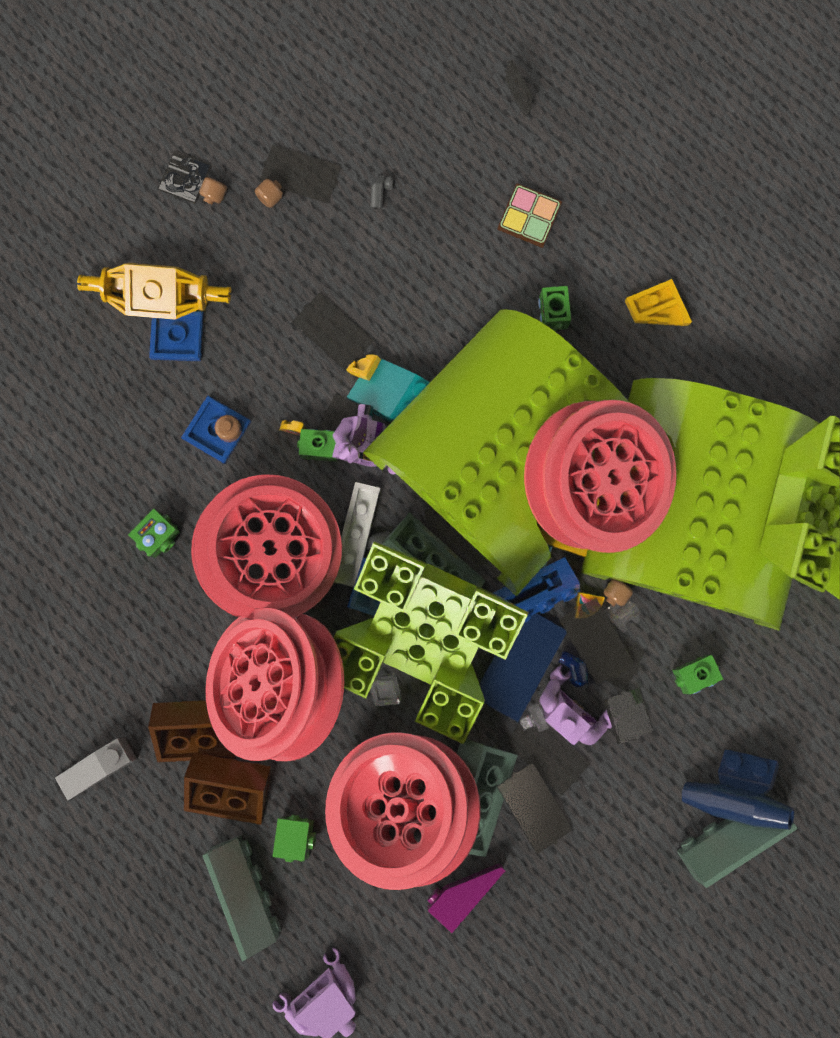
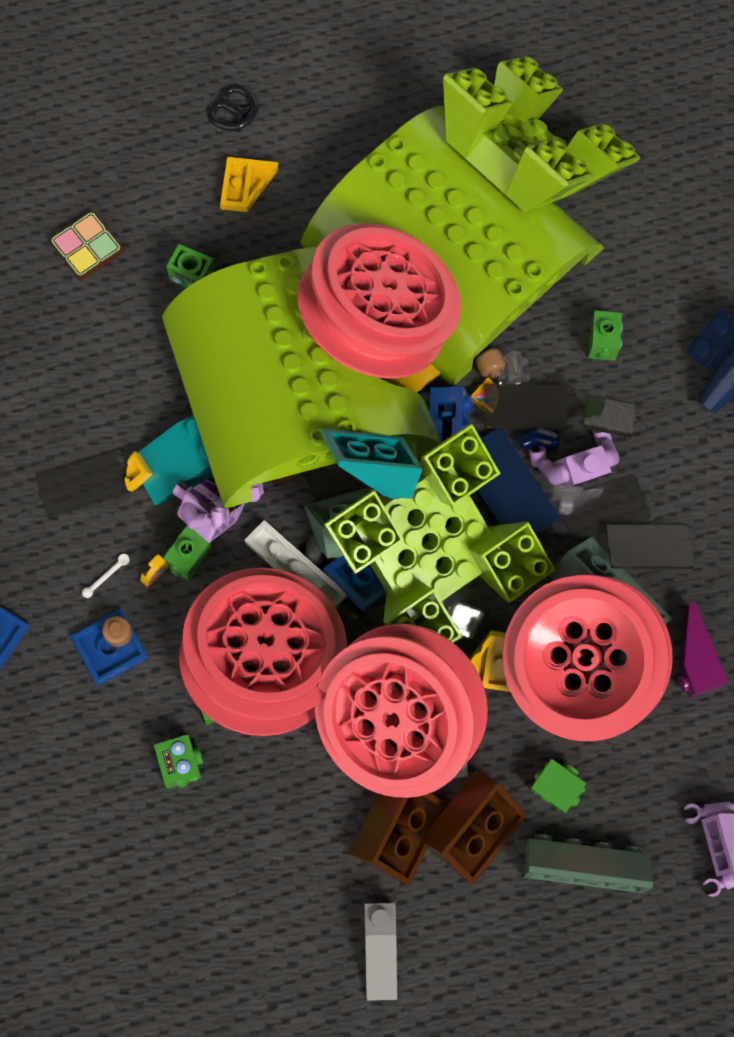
camera: 60 degrees left, 10 degrees down
(290, 398) = (123, 560): none -> white hinge
(360, 726) = (489, 661): none -> yellow wing
(453, 551) = (376, 460): none -> teal slope
(719, 259) = (235, 109): none -> black piece

